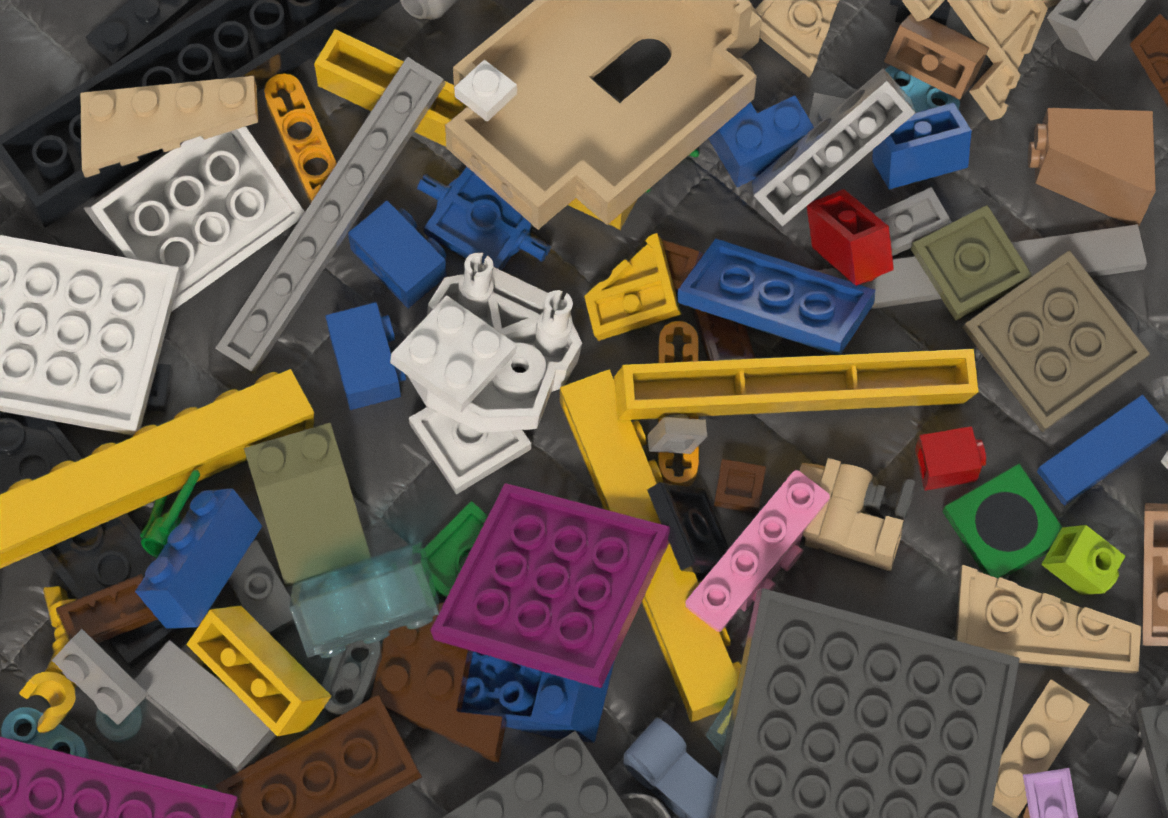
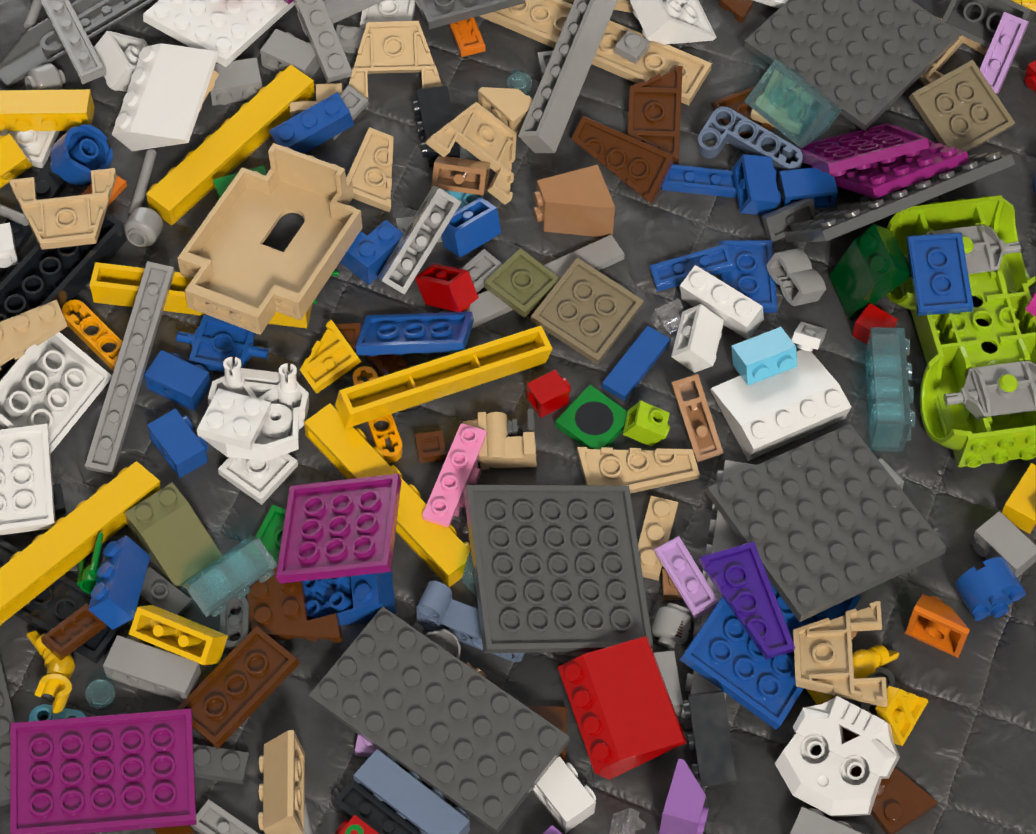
camera: 20 degrees left, 10 degrees down
(99, 677) = (82, 666): light grey plate -> none
(485, 90) = (202, 263): white plate -> none
(677, 434) = (384, 426): light grey plate -> none
(693, 526) = (410, 473): black tile -> none

